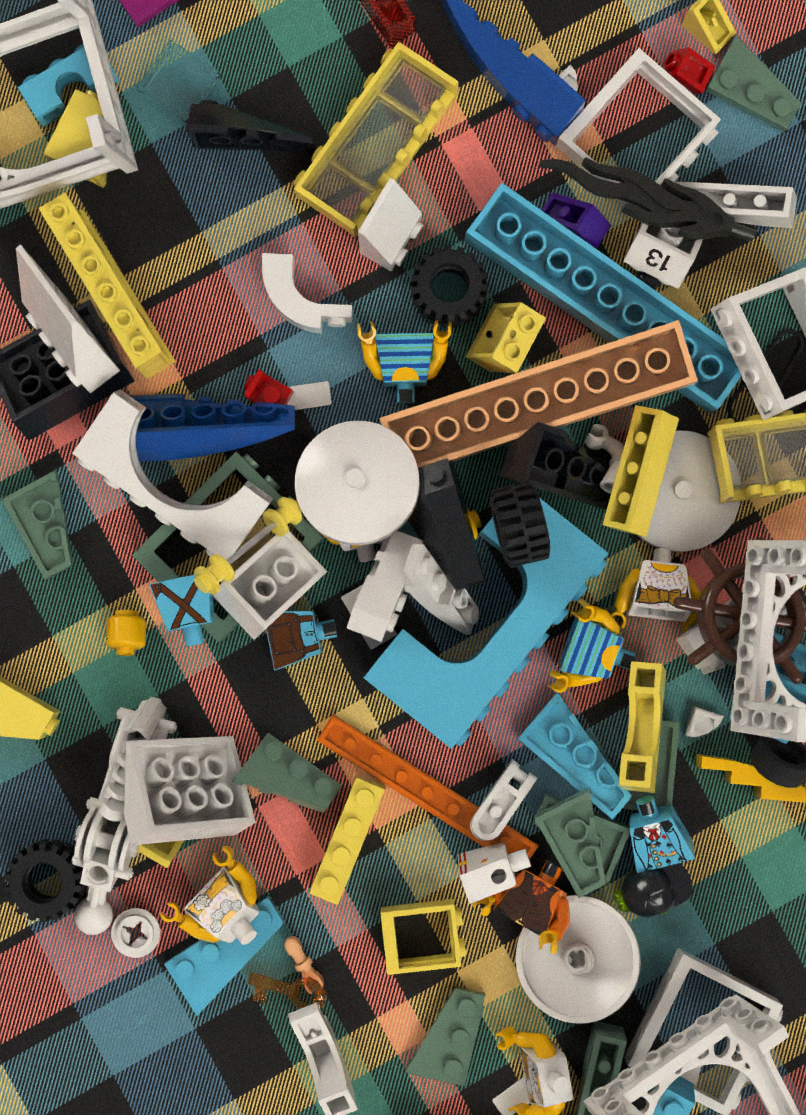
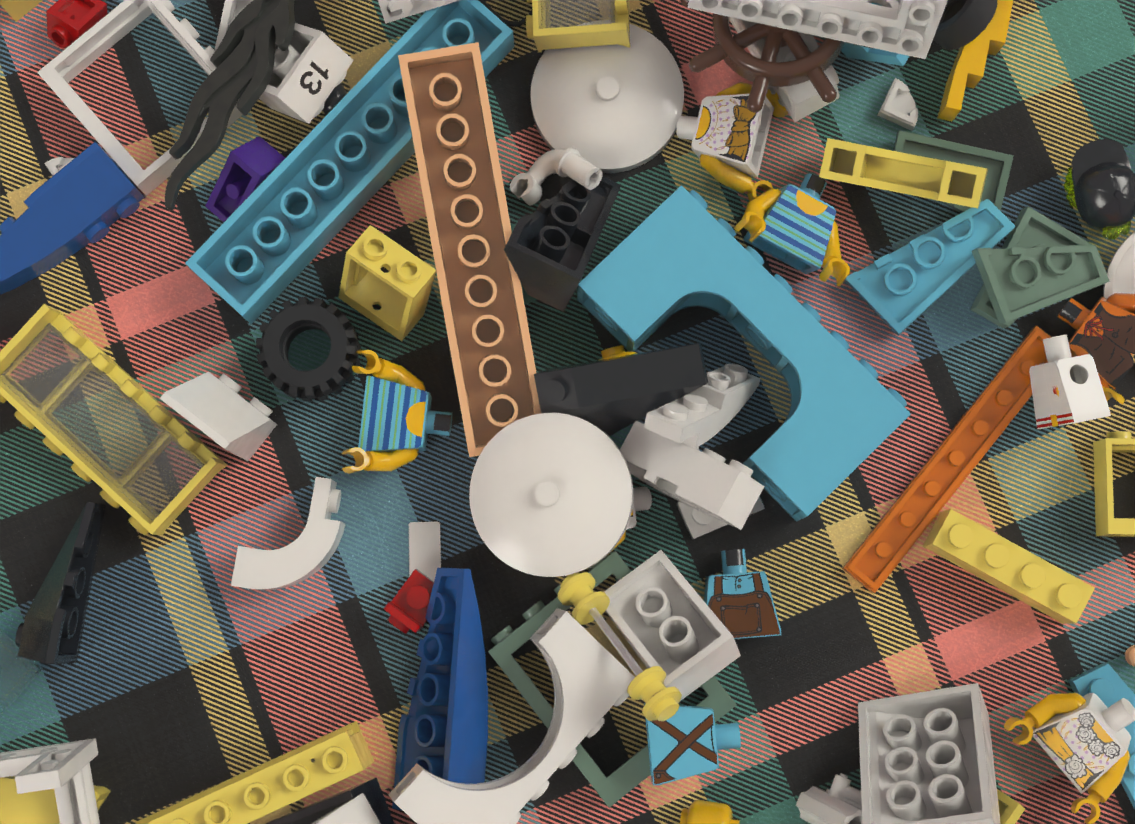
camera: 80 degrees left, 5 degrees down
(285, 773) = (915, 638): sand green wing -> none
(501, 802) = (979, 364): white plate -> none
(520, 524) = (635, 285): black tyre -> none
(641, 471) = (579, 134): light yellow brick -> none
(658, 836) = (1041, 173): medium azure torso -> none

